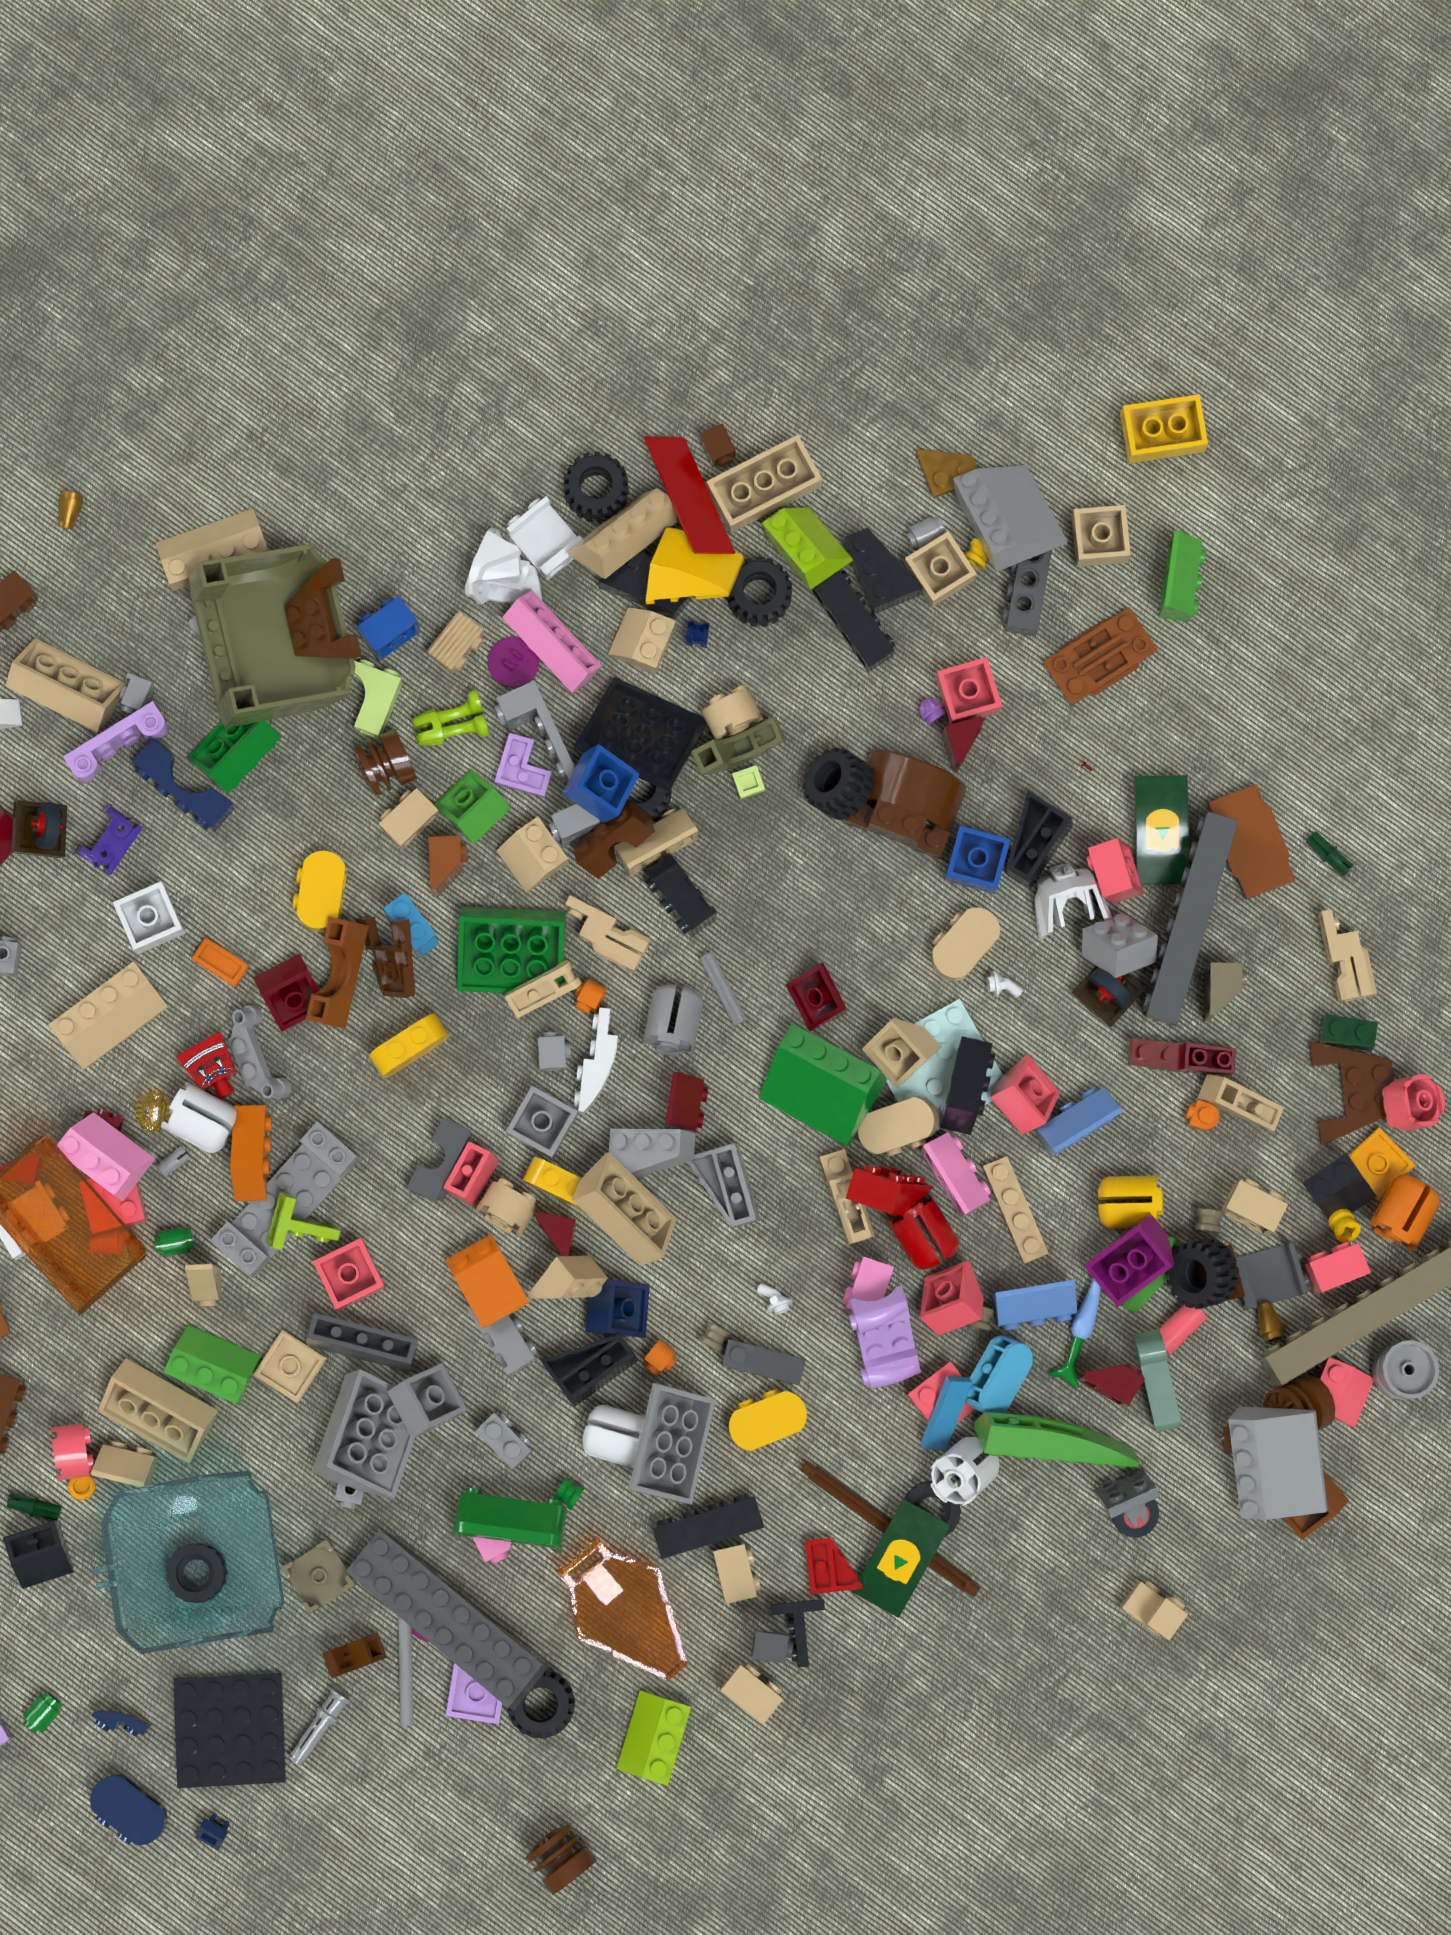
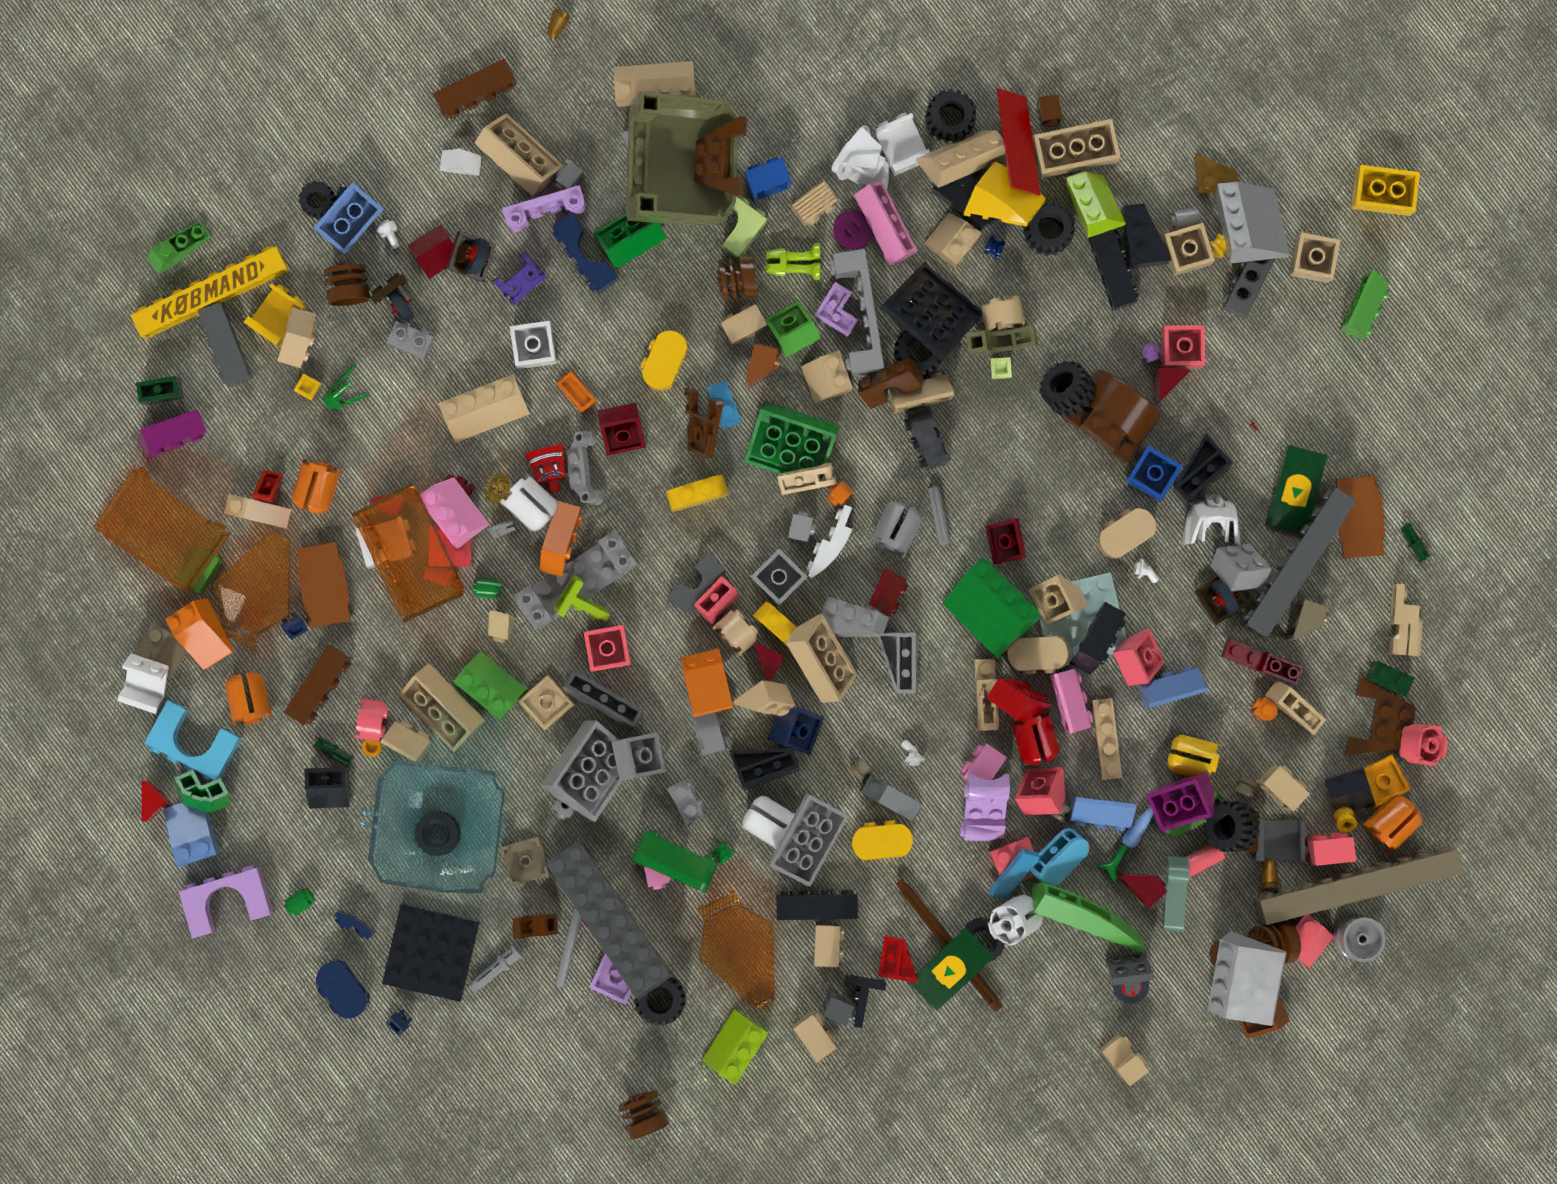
camera: 15 degrees right, 5 degrees up
(346, 945) = (651, 444): dark orange arch -> none
(601, 783) = (892, 340): blue brick -> none
(607, 941) = (861, 445): tan plate -> none
(660, 1358) = (816, 773): orange plate -> none
(1100, 657) = (1287, 347): dark orange piece -> none
(1115, 870) = (1253, 510): coral brick -> none

